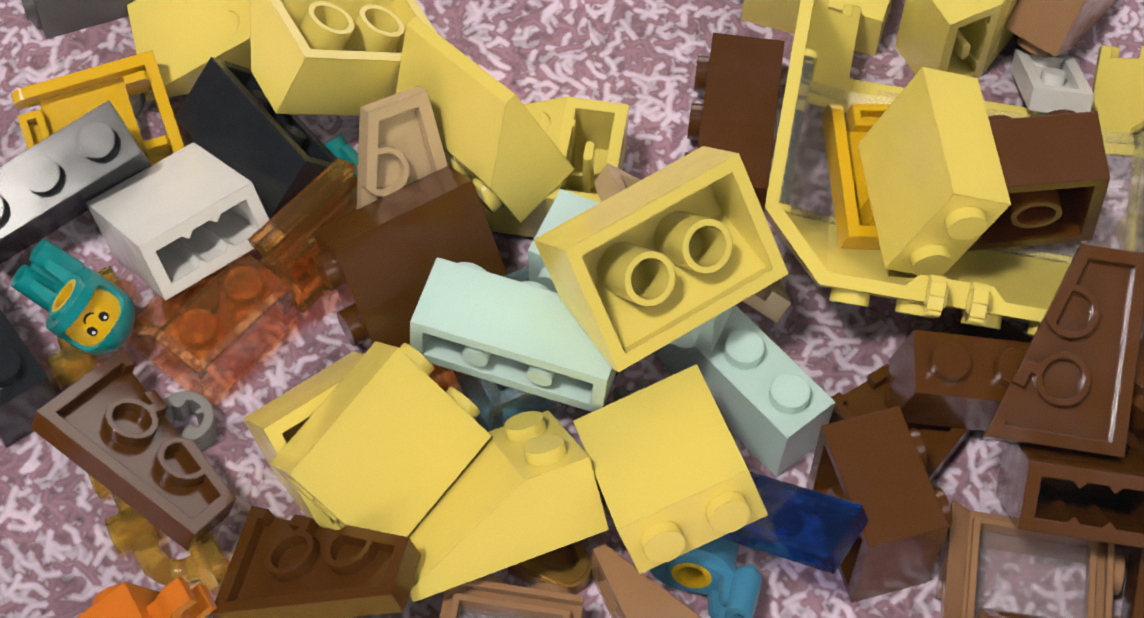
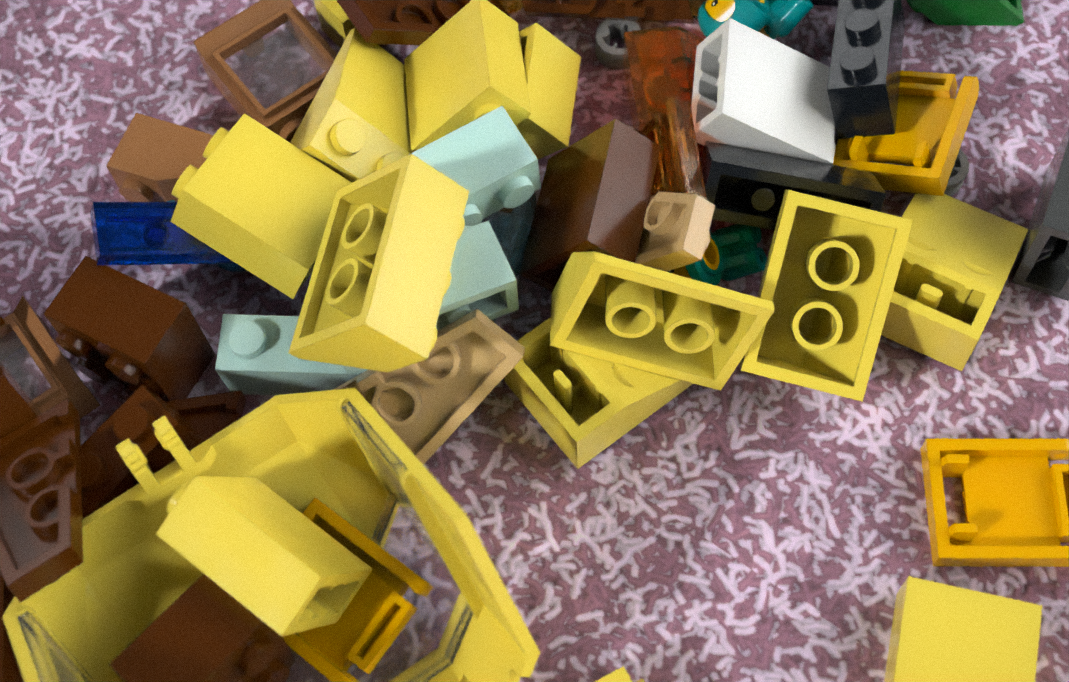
camera: 140 degrees right, 5 degrees up
(739, 102) = (541, 578): reddish brown brick -> none

